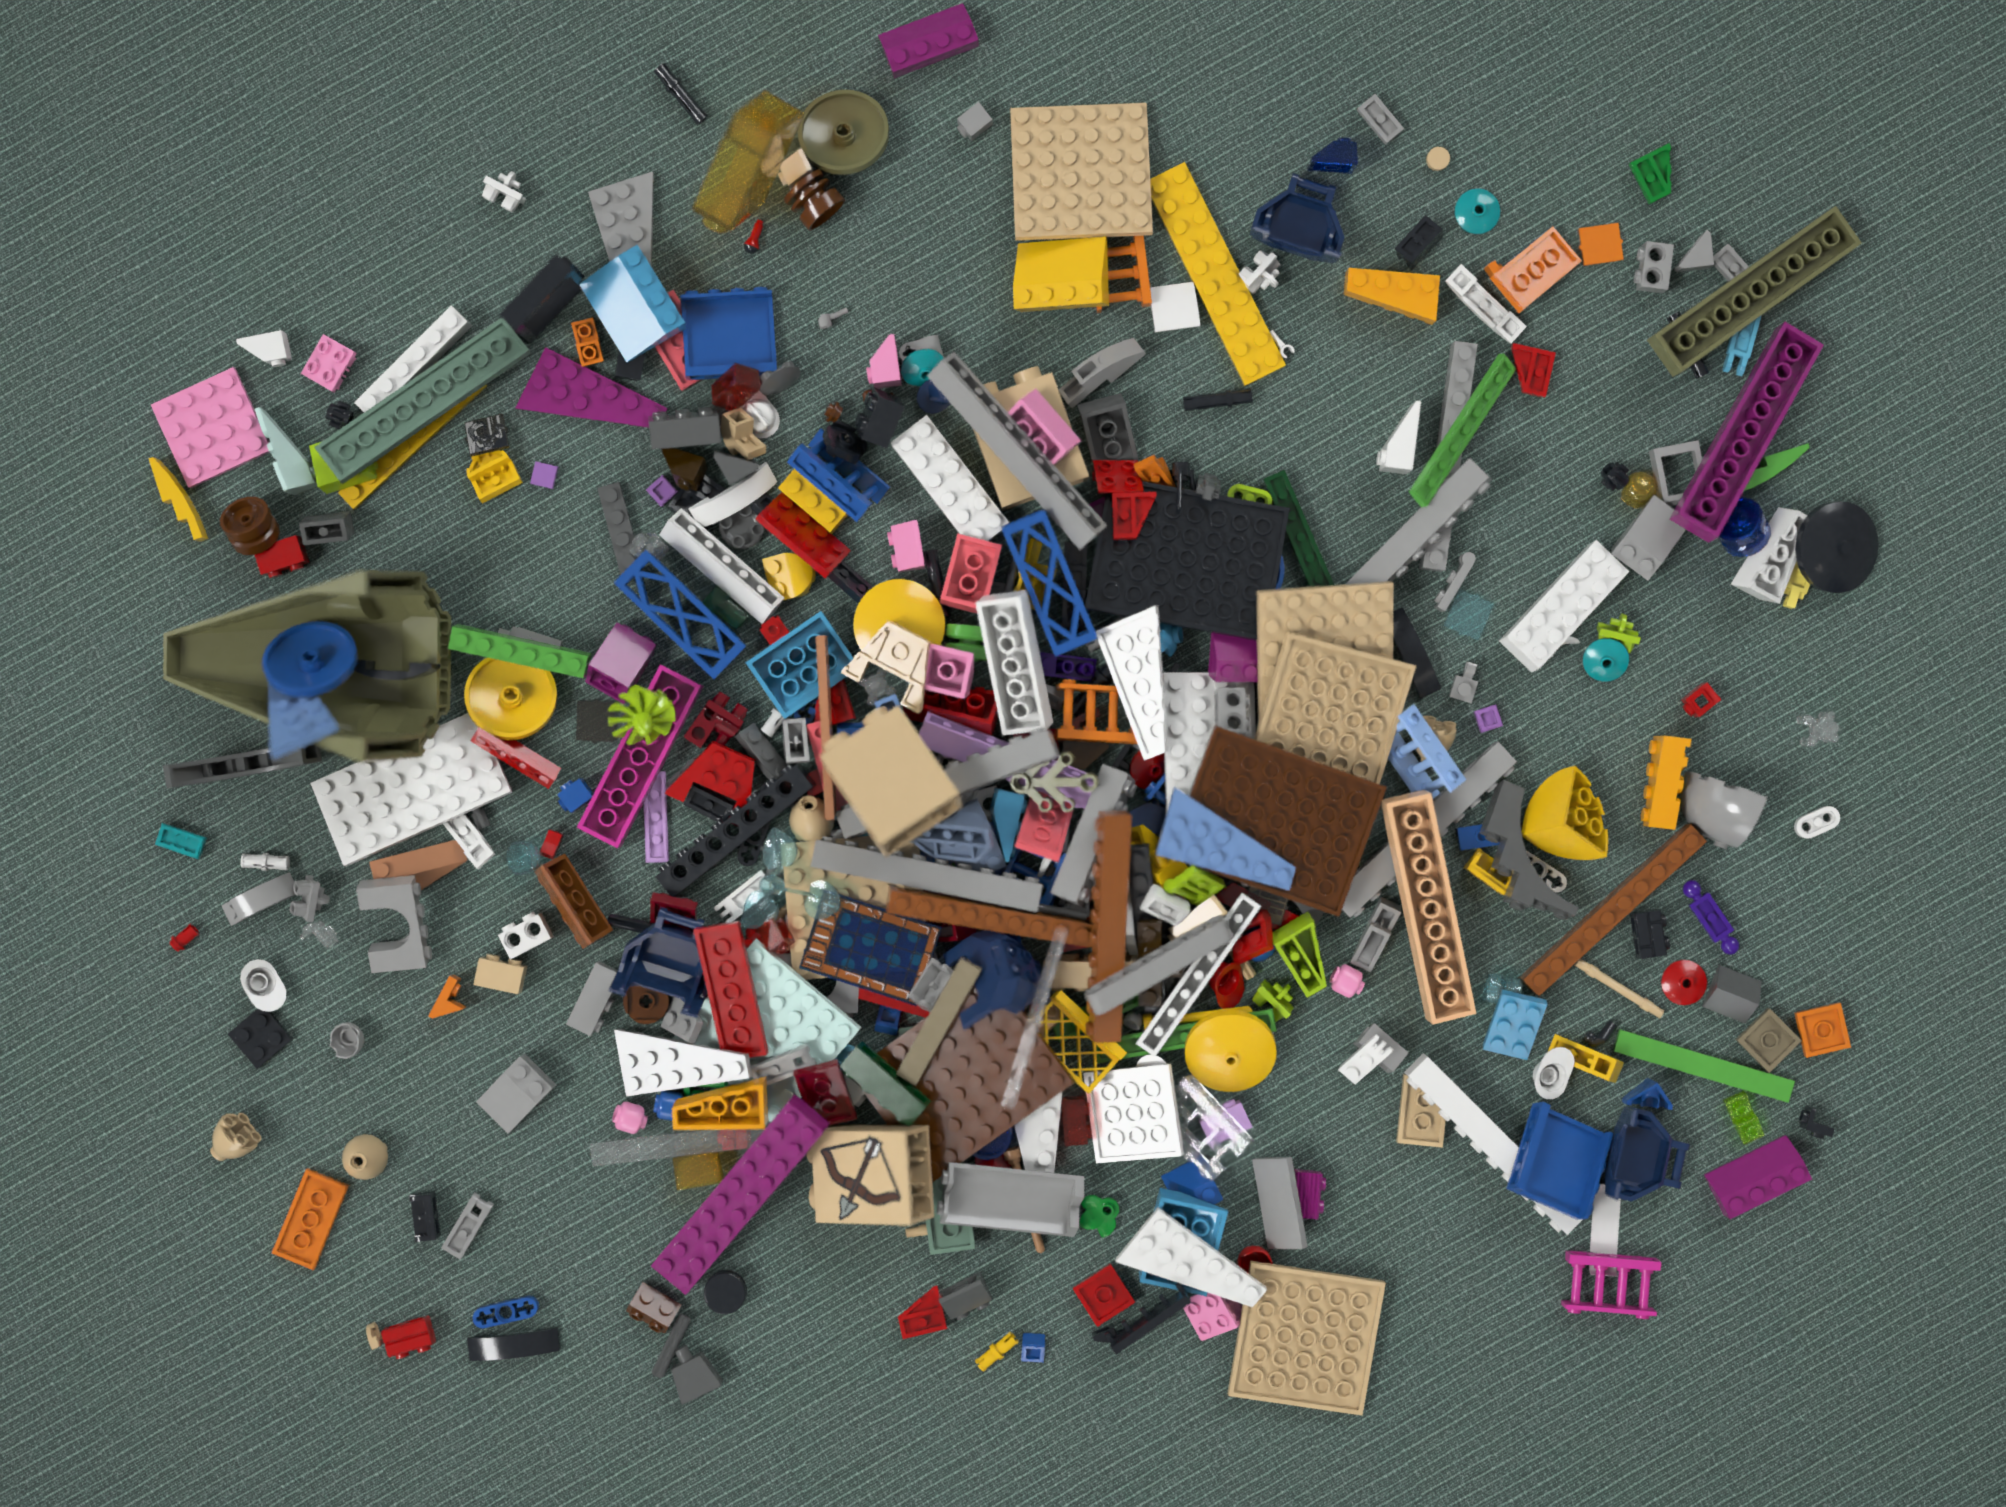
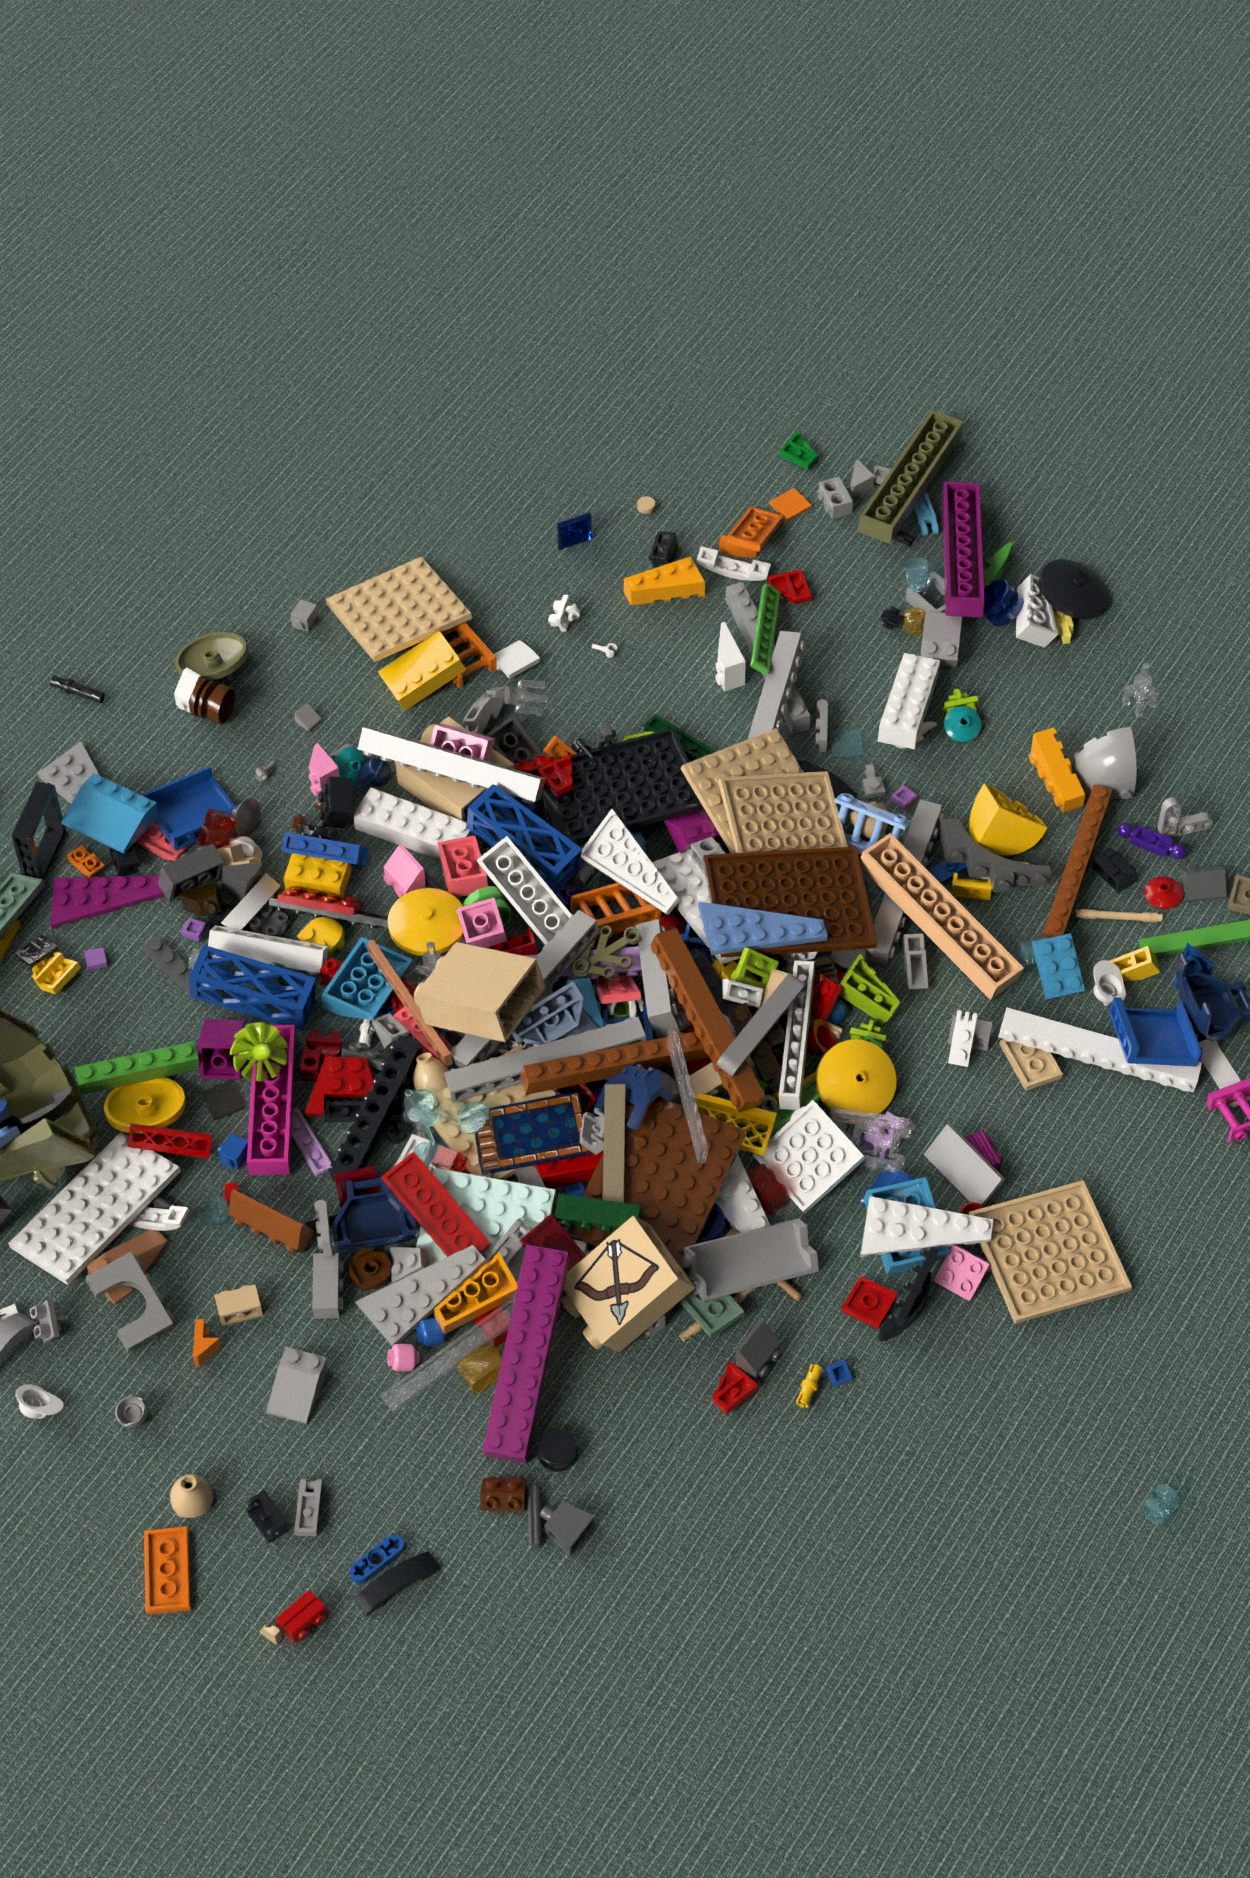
camera: 25 degrees left, 35 degrees down
(233, 1137) = (67, 1532): tan piece -> none
(260, 1037) = (54, 1449): black plate -> none
(325, 934) = (72, 1344): clear bracket -> none
(527, 939) = (248, 1268): white brick -> none
(617, 943) = (323, 1227): none -> light grey plate
(747, 162) = (151, 682): clear yellow brick -> none
(751, 245) = (179, 753): red piece -> none
(899, 653) = (436, 924): wing -> none
(911, 269) = (307, 717): none -> light grey slope
(929, 40) = (245, 587): magenta slope -> none
(1097, 1217) = (829, 1250): green plate -> none
(1149, 373) = (520, 696): none -> clear plant
(1215, 274) = (535, 631): yellow plate -> none
(1218, 399) = (586, 693): black pin -> none
(1301, 223) = (574, 573): dark blue piece -> none
(1346, 981) = (914, 999): bright pink head -> none
(1380, 119) = (591, 499): light grey plate -> none
(1467, 216) = (693, 522): teal dish -> none
(1601, 1037) = (1129, 947): black arm -> none
(1673, 445) = (917, 574): none -> clear light blue wheel
(1691, 706) = (1043, 722): red window -> none
(1758, 917) = (1172, 825): none -> light grey beam
(1816, 822) = (1181, 752): white plate -> none

